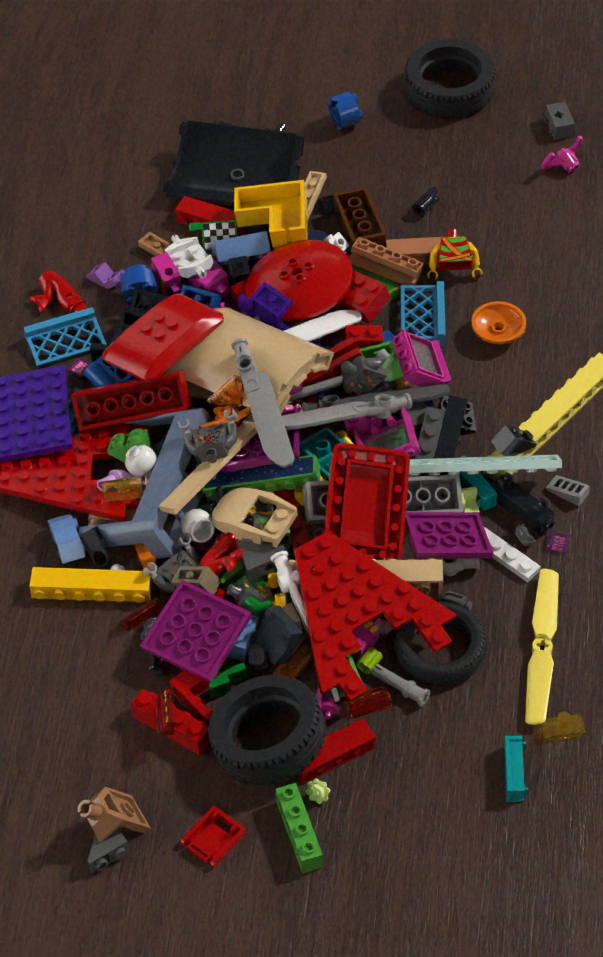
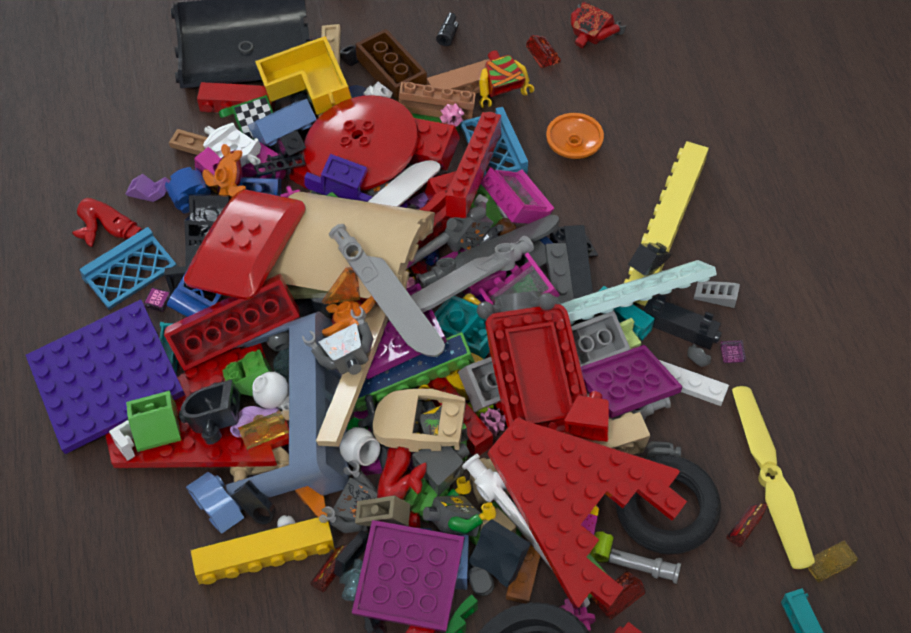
camera: 20 degrees left, 5 degrees up
(10, 466) = (122, 438): none -> white bracket
(38, 460) = (153, 421): none -> bright green slope
(88, 463) = (212, 410): none -> black piece
(153, 607) = (351, 553): none -> black tile
(163, 426) = (279, 341): none -> dark grey plate
(173, 278) = (227, 174): none -> orange animal
(218, 277) = (284, 162): none -> black piece
(388, 322) = (473, 165): none -> red brick
(389, 443) = (517, 301): none -> dark grey piece
(393, 277) = (452, 115): none -> bright pink gear
(394, 551) = (589, 418): none -> red torso
(503, 679) = (746, 524): none -> clear red slope
(507, 241) = (542, 51): none -> clear red slope
(563, 229) = (593, 24): none -> red torso

